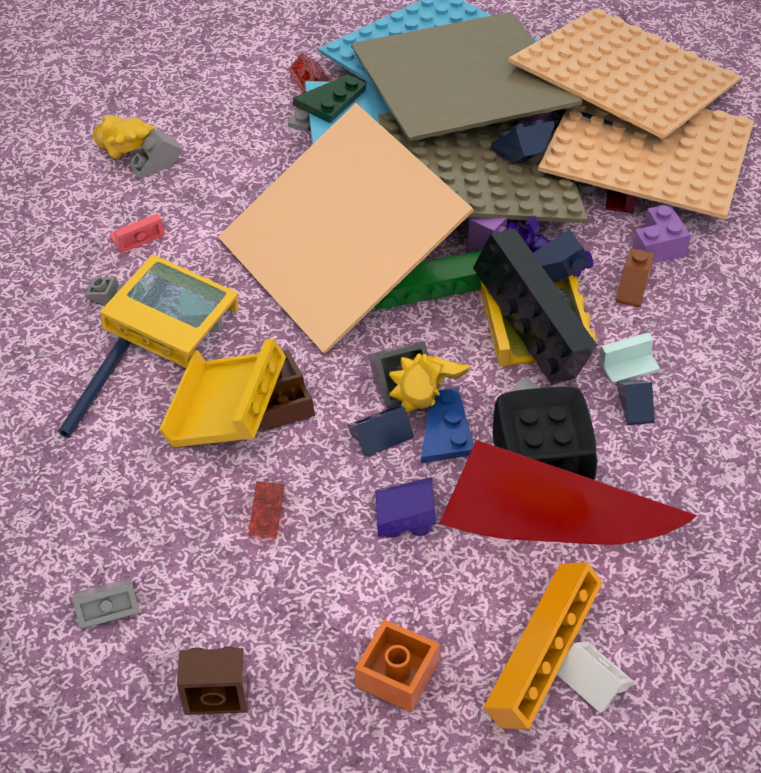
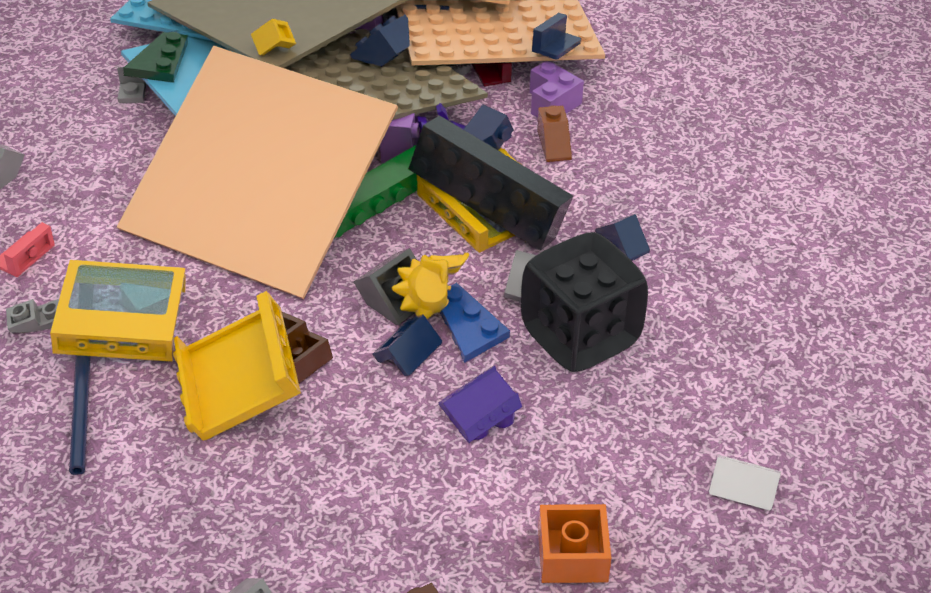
camera: 30 degrees left, 5 degrees down
(266, 509) = (348, 459): clear red slope -> none
(307, 69) = (106, 47): clear red panel -> none
(423, 106) = (271, 35): none -> yellow panel
(534, 501) = (607, 347): red sticker -> none
(543, 646) = (690, 473): light orange brick -> none
(628, 358) = (593, 205): light aqua panel -> none
(682, 184) = (551, 38): none -> dark blue panel

